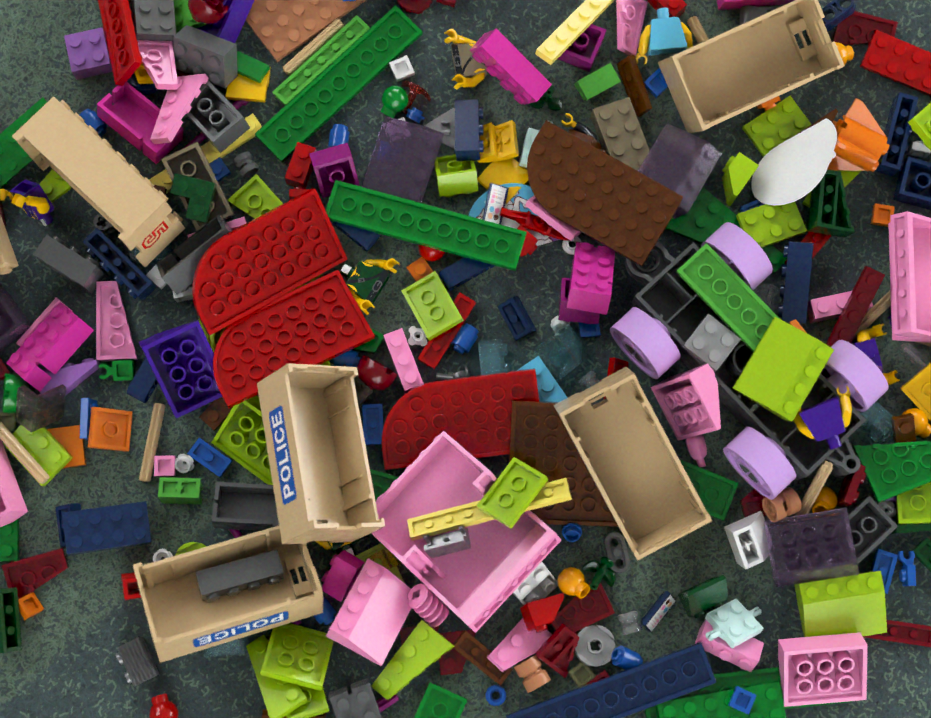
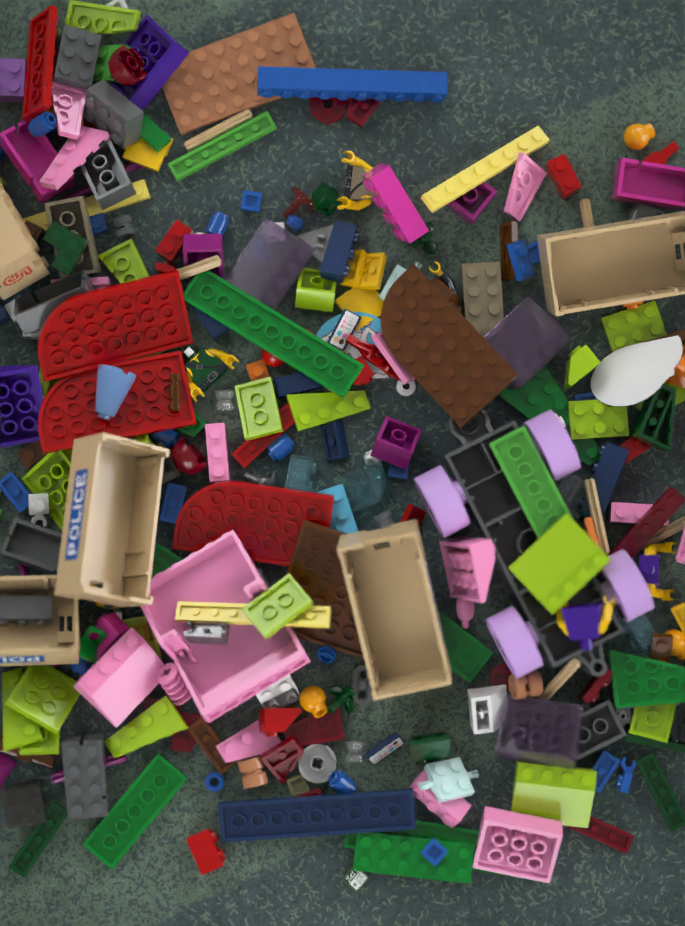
camera: 20 degrees right, 5 degrees up
(137, 83) = (42, 124): none -> blue brick
(236, 465) = (38, 505): none -> white plate
(280, 323) = (111, 390): none -> medium blue cone
(330, 590) = (88, 647): none -> green bracket
(335, 180) = (199, 267): none -> tan axle
(338, 83) = (232, 172): green plate -> none
(344, 311) = (175, 392): none -> reddish brown axle
(366, 106) = (251, 201): none -> blue plate
(394, 100) = (278, 203): green piece -> none
(395, 307) = (224, 400): none -> clear wheel
(402, 68) = (295, 174): white plate -> none
(413, 340) = (233, 436): white plate -> none
(438, 84) = (325, 199): none -> dark green panel
(496, 287) = (320, 408): none -> lime wing
(591, 278) = (410, 426): dark pink piece -> none
(597, 82) = (475, 238): bright green hinge -> none
(648, 90) = (520, 260): none -> blue plate
(664, 36) = (550, 212): medium azure torso -> none
(711, 342) = (502, 519): light grey plate -> none
(796, 308) = (596, 514): none -> tan axle
(825, 501) = (568, 692): light orange piece -> none

